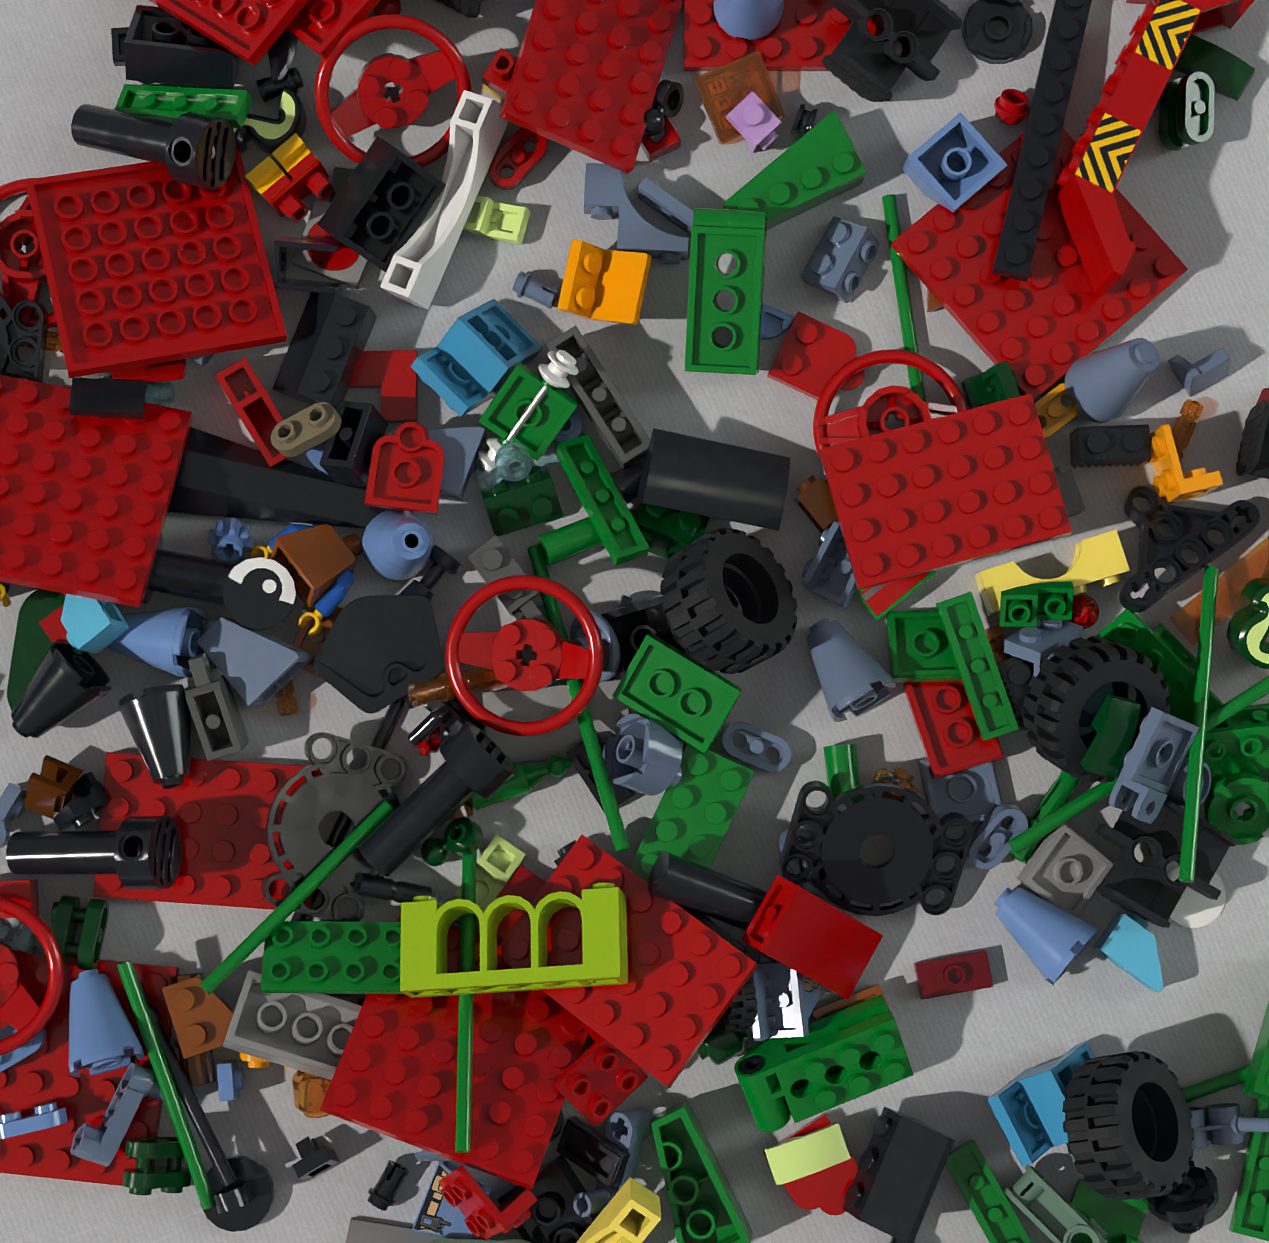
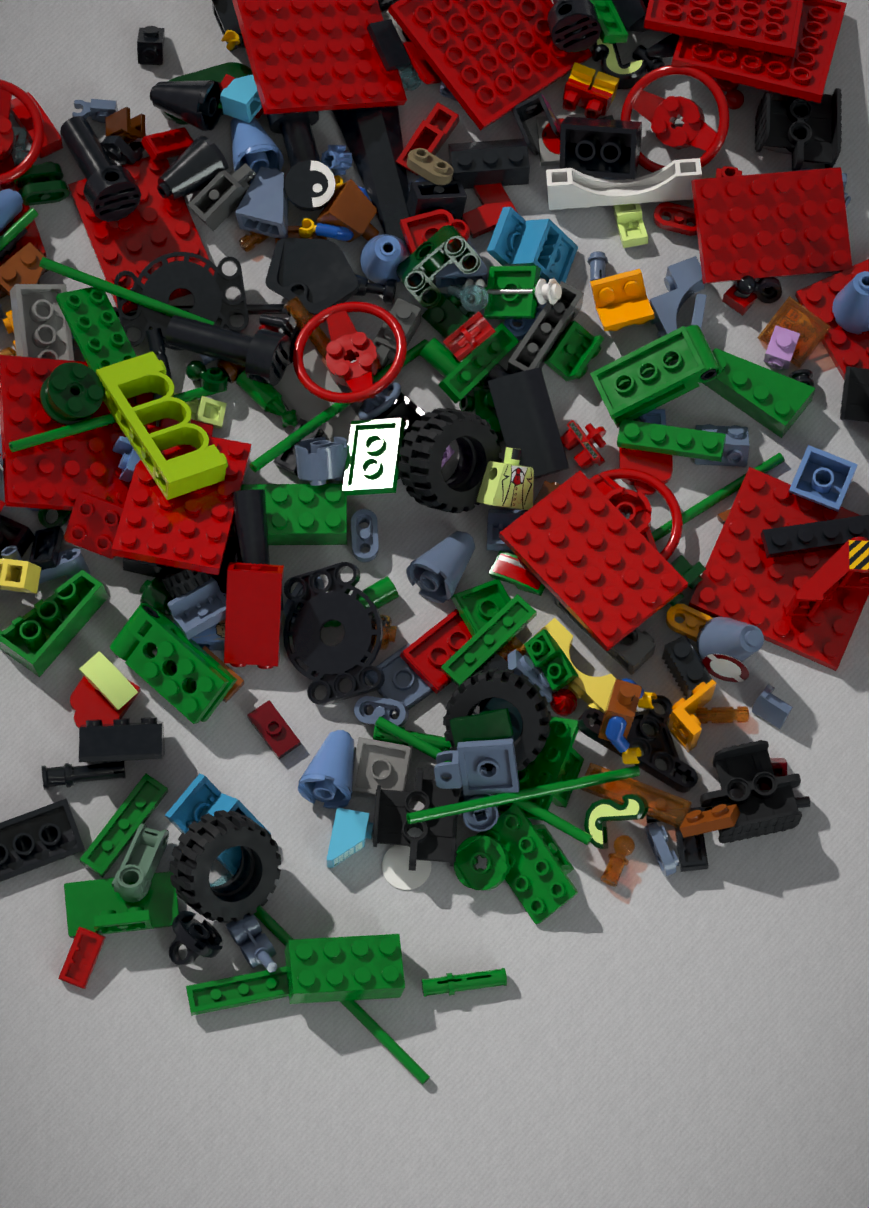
camera: 65 degrees right, 15 degrees down
(101, 742) = (167, 143): none -> red plate
(420, 1015) = (71, 393): none -> dark green wheel
(443, 489) = (431, 258): none -> dark green beam
(535, 1001) = (128, 460): none -> medium blue bracket
(565, 494) = (469, 336): none -> red hips
(638, 373) = (573, 352): none -> green bracket
(780, 421) = (590, 454): none -> red hips
(788, 545) = (508, 483): none -> yellowish green torso
(817, 316) = (671, 440): none -> green plate
(1136, 400) = (725, 668): none -> sticker
(1156, 553) = (620, 715): none -> torso

